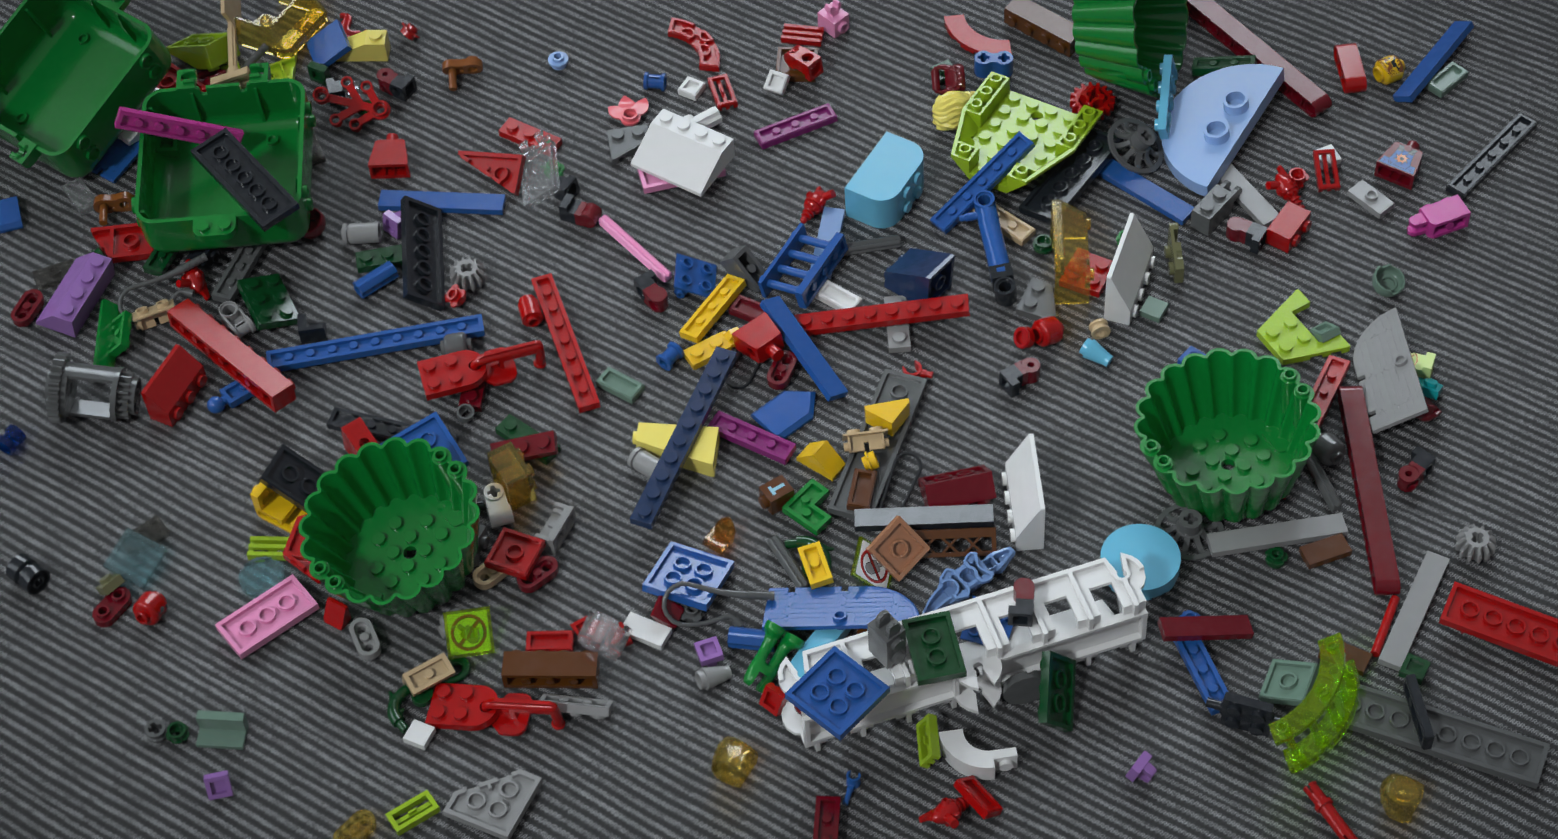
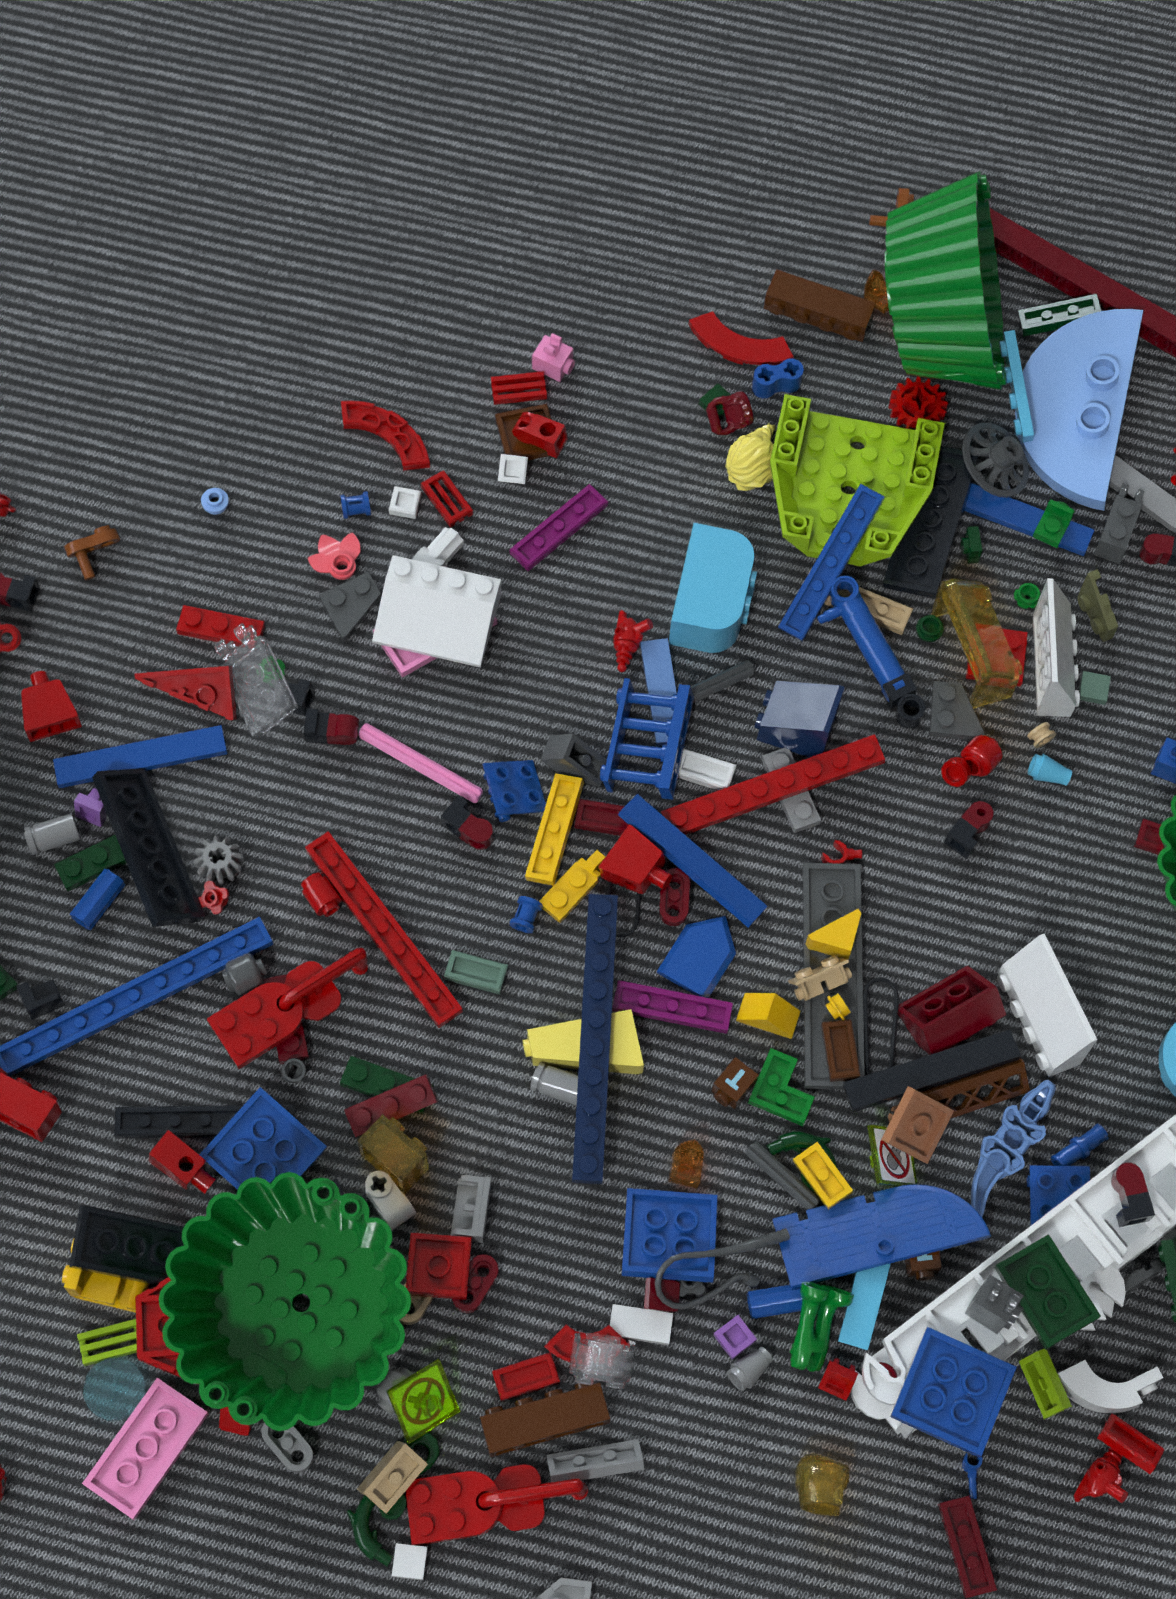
camera: 25 degrees left, 15 degrees up
(1095, 197) = (971, 545): none -> dark green plate
(1164, 195) = (1054, 523): none -> green bracket

